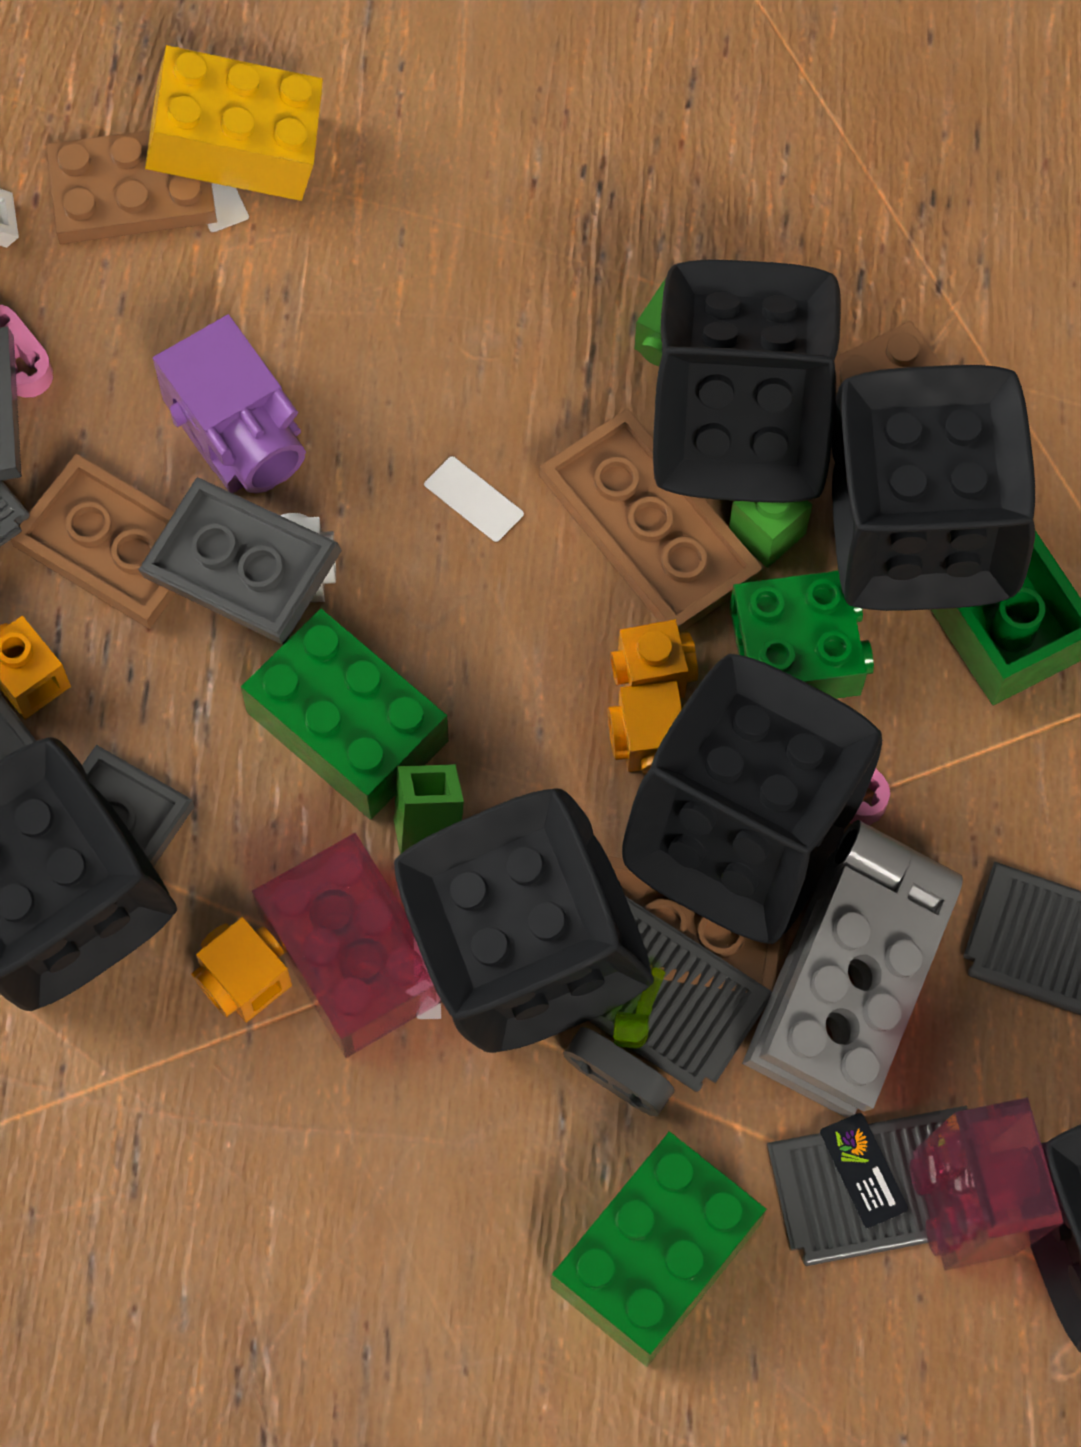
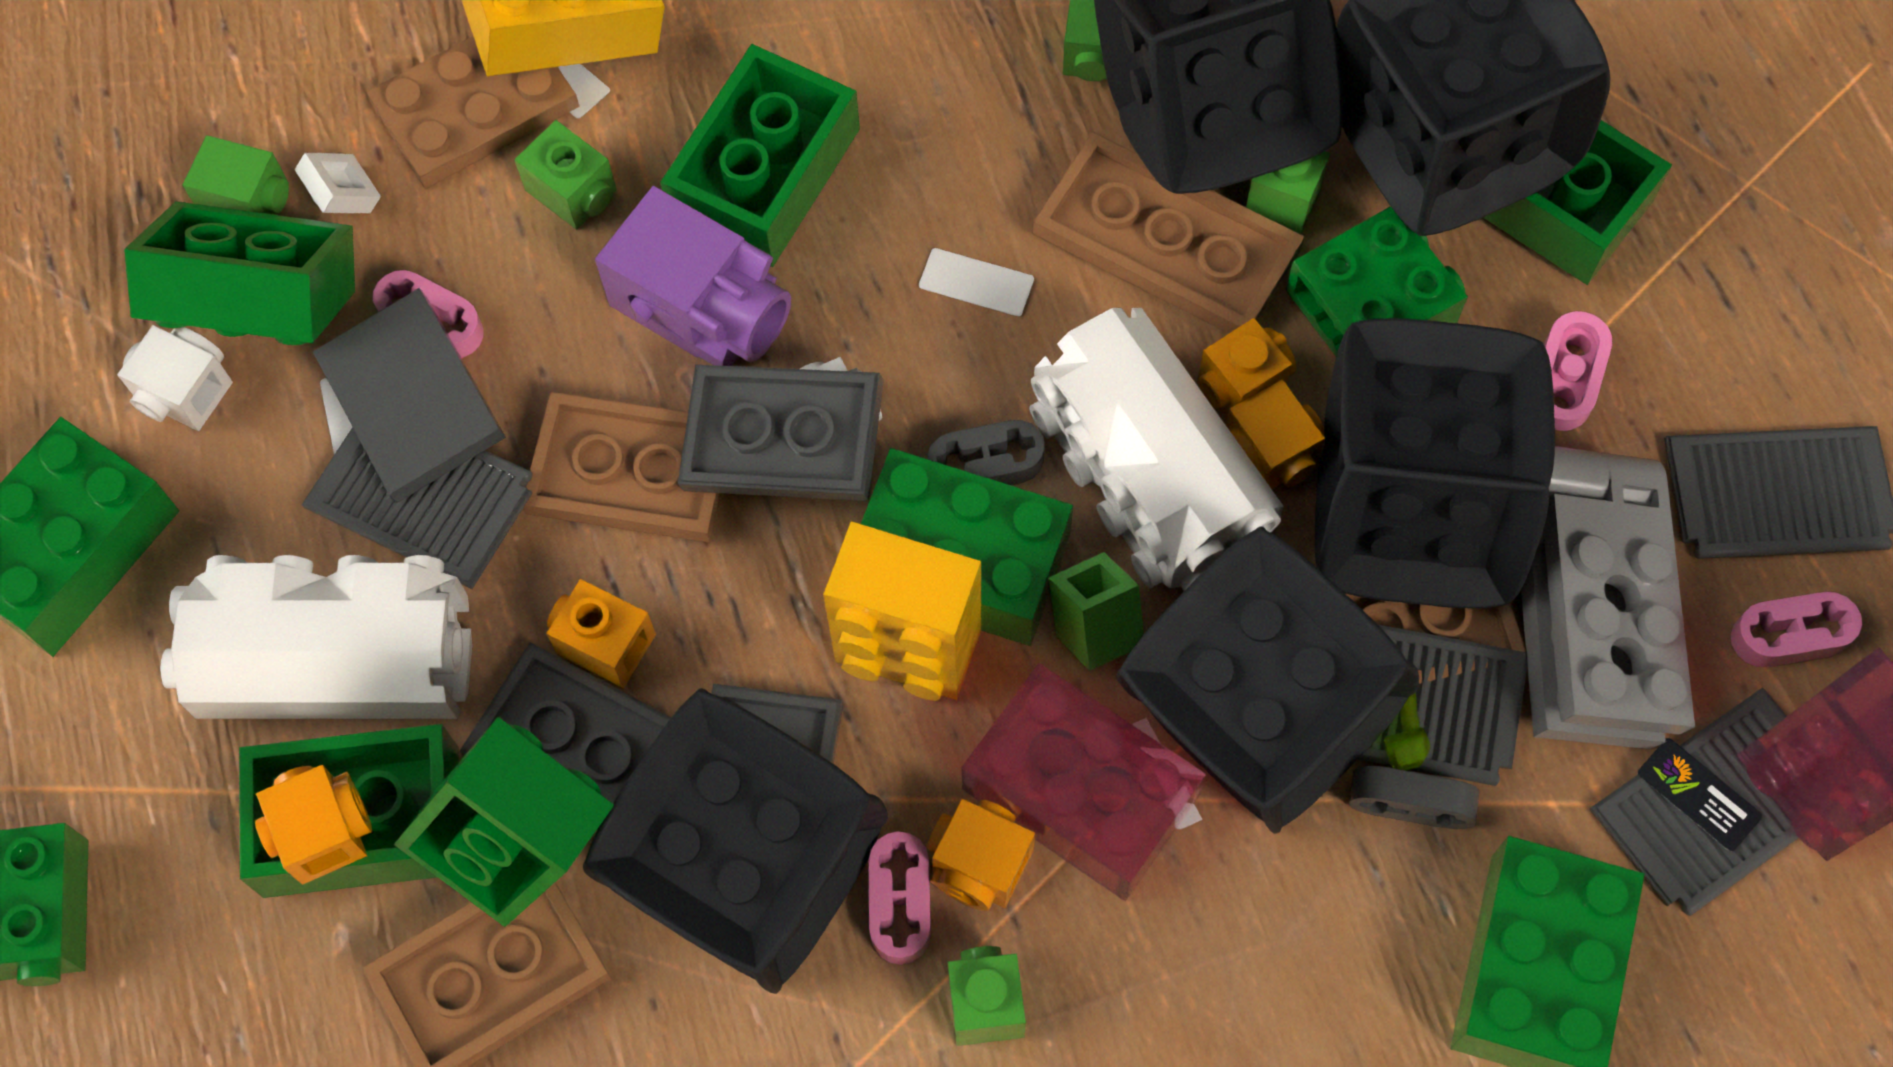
camera: 20 degrees left, 0 degrees up
(150, 972) = (915, 897): none -> bright pink beam
(174, 277) = (566, 175): none -> bright green brick
(188, 1083) = (986, 996): none -> bright green brick
(261, 747) = (903, 612): none -> yellow brick
(339, 321) = (765, 149): none -> green brick
(408, 647) = (986, 450): none -> dark grey beam
(538, 688) = (1153, 446): none -> white brick
(934, 775) = (1575, 376): none -> bright pink plate
(1023, 1055) = (1798, 643): none -> bright pink beam

